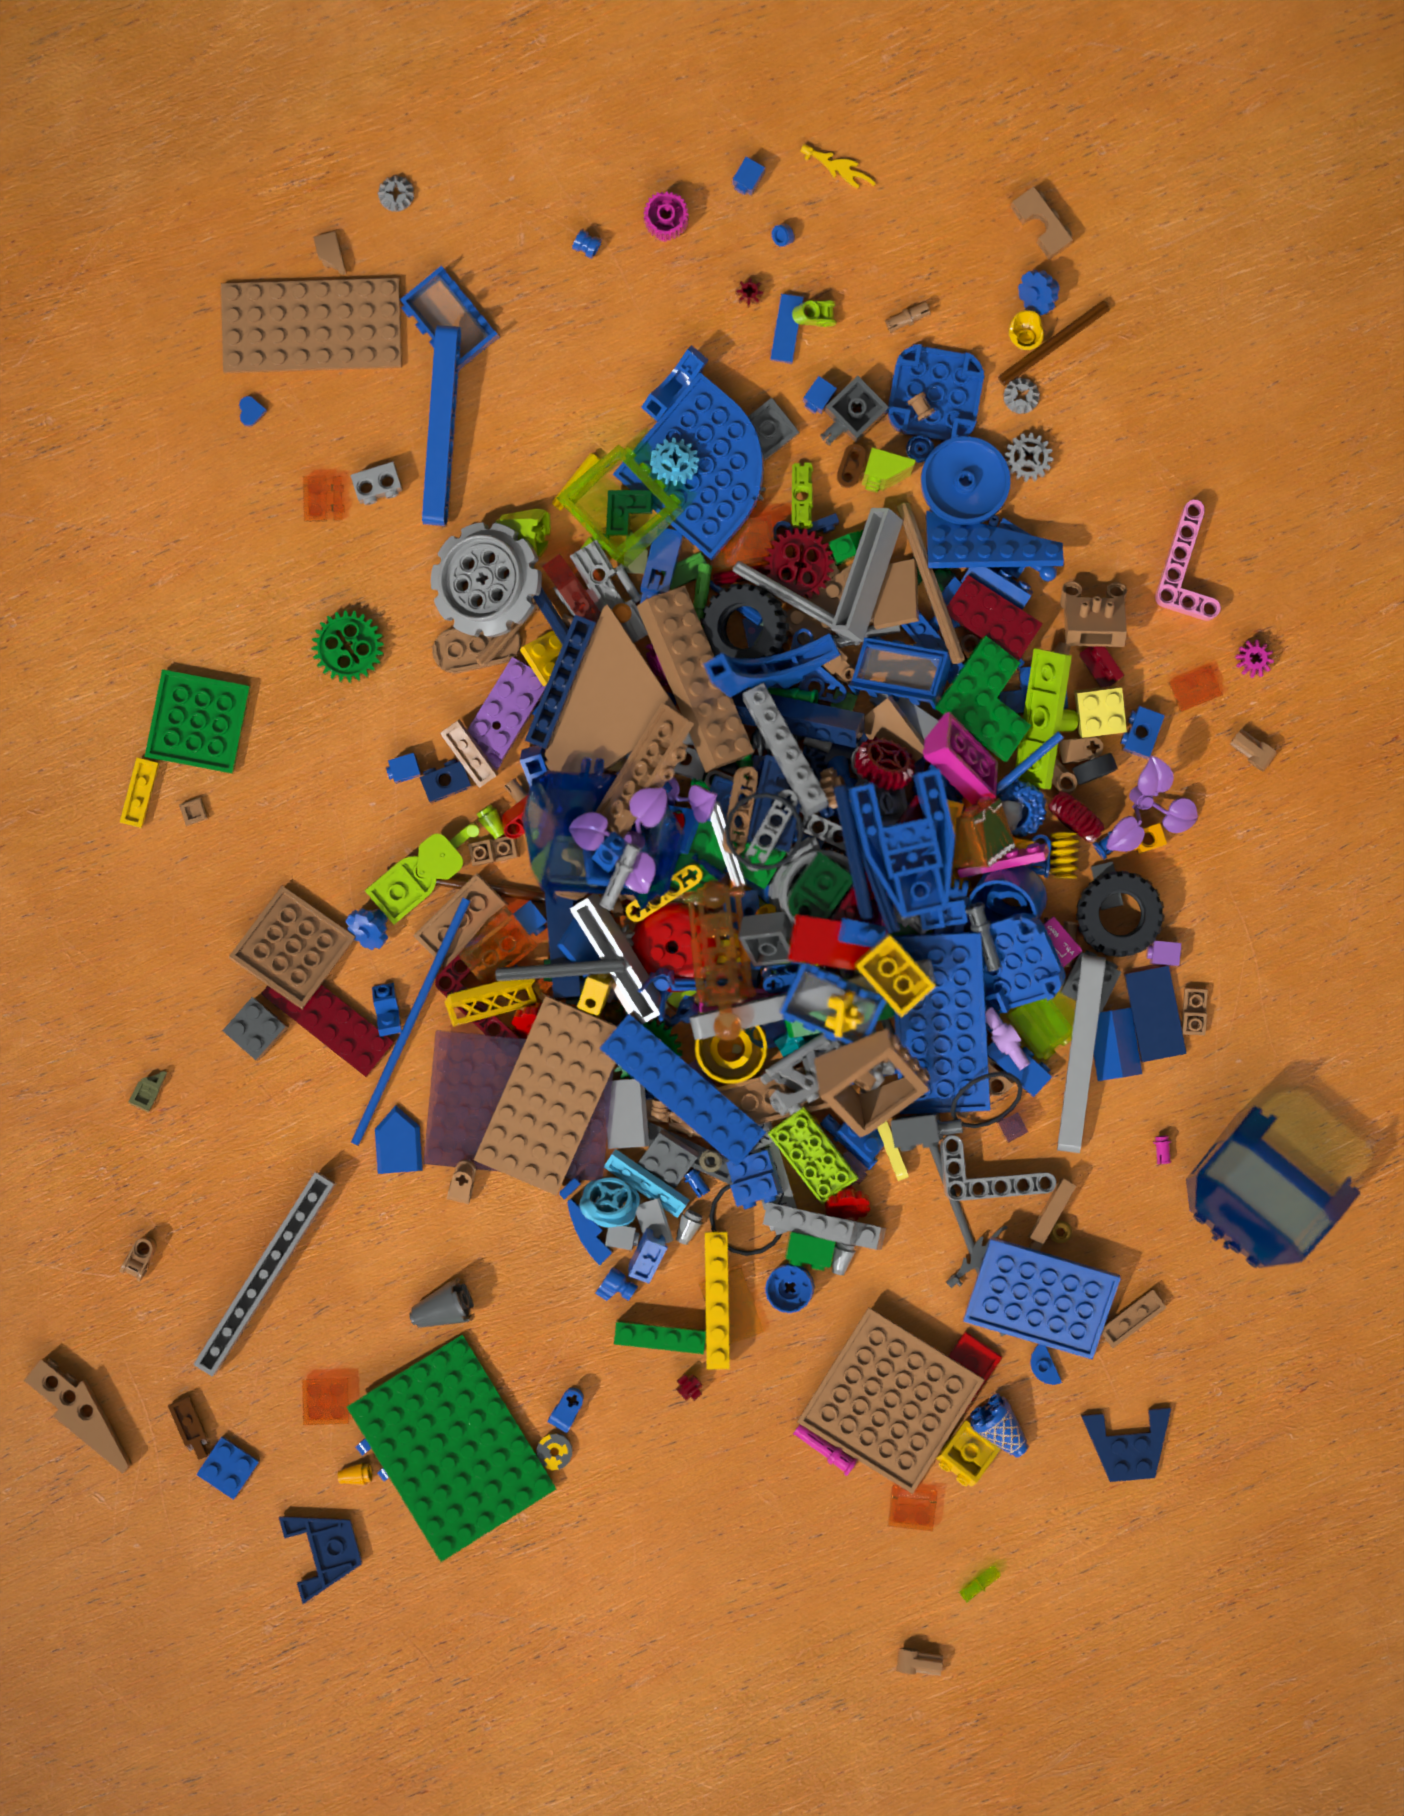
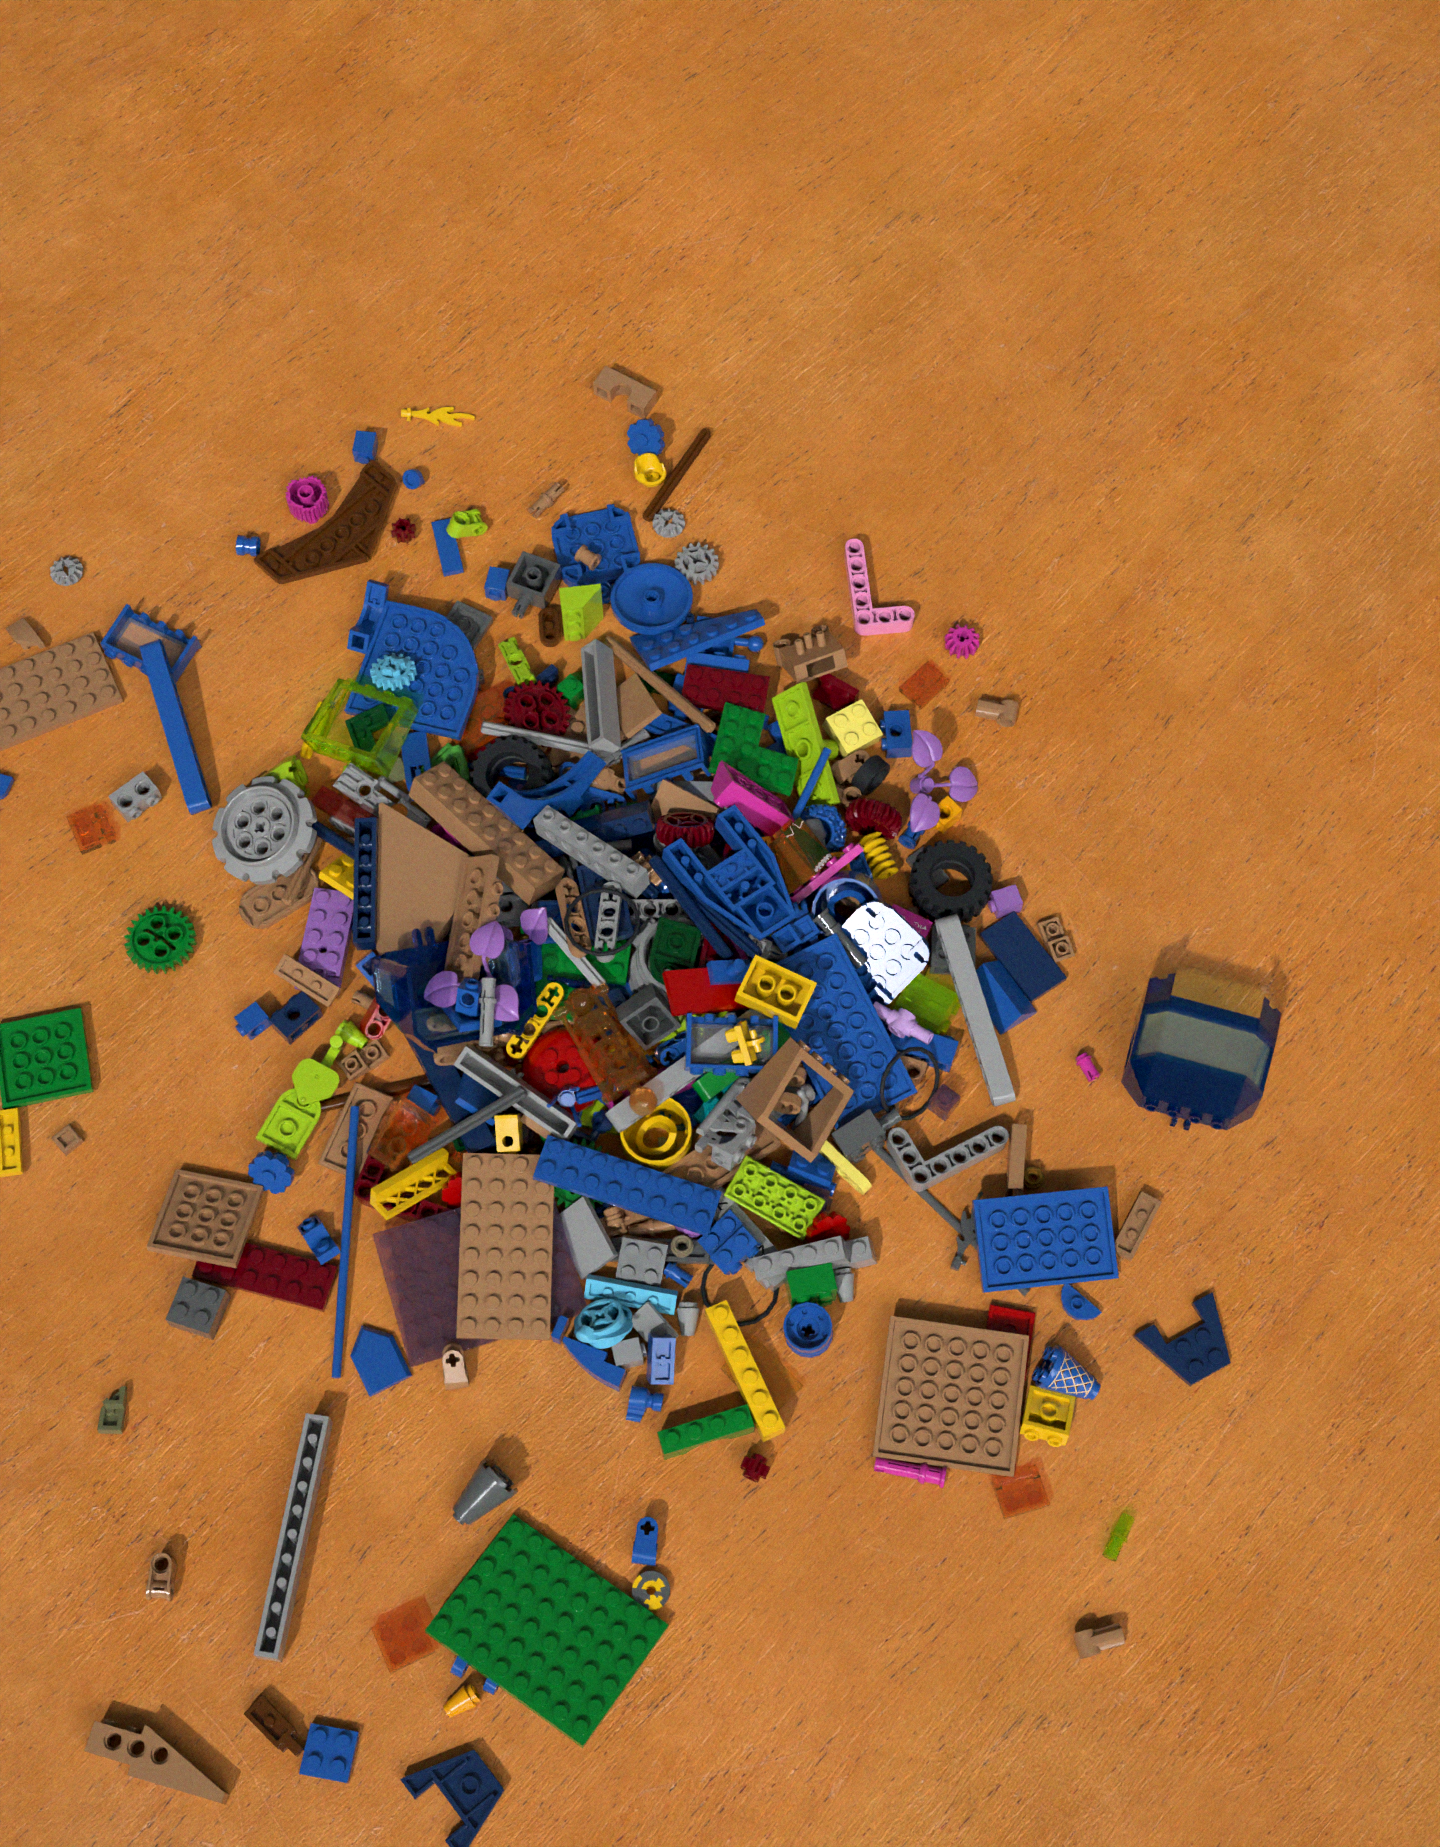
camera: 25 degrees left, 20 degrees down
(673, 276) = (336, 542): none -> reddish brown wing

